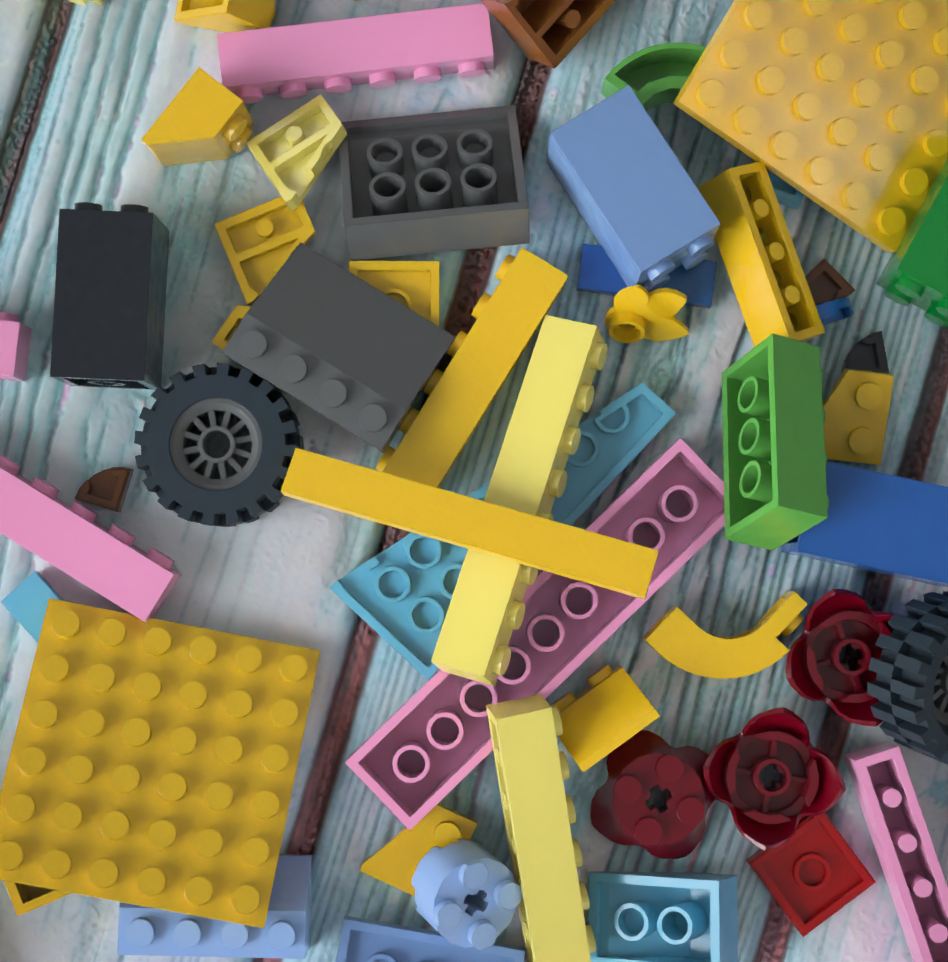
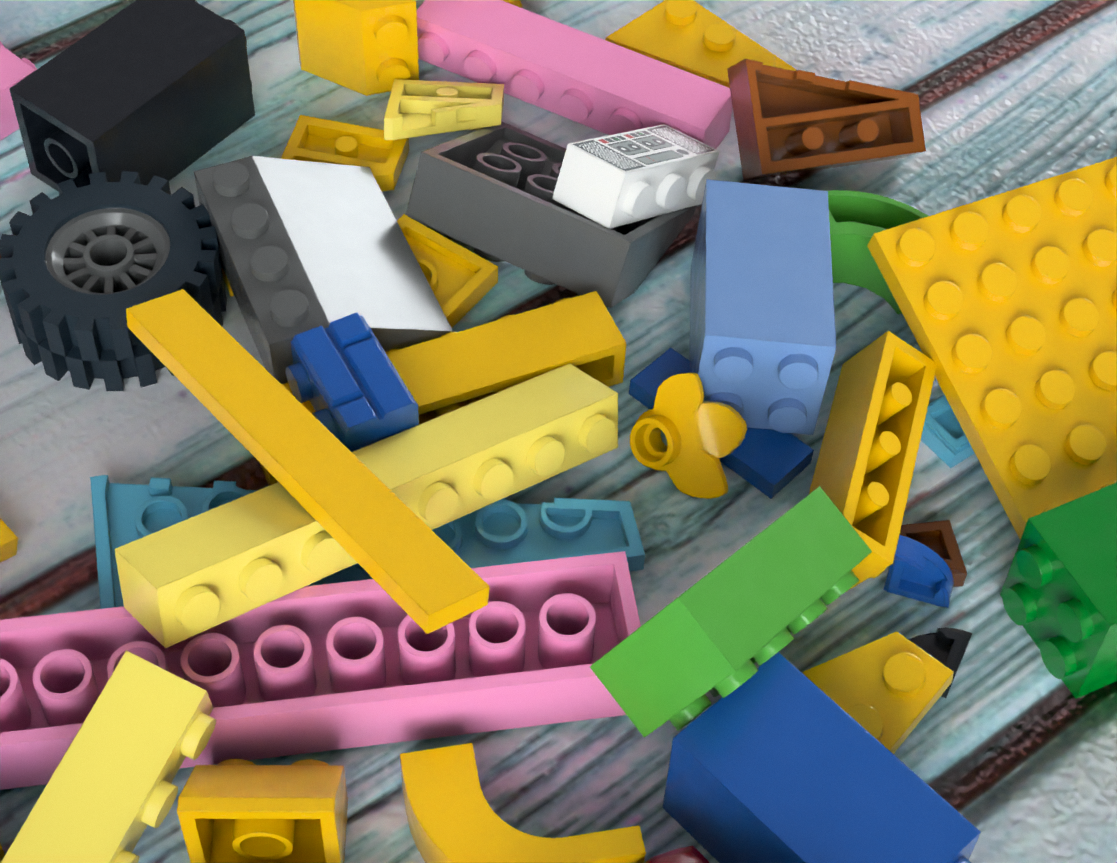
camera: 30 degrees right, 35 degrees down
(449, 441) = (350, 383): none -> blue brick
(486, 136) = (634, 175): none -> white brick

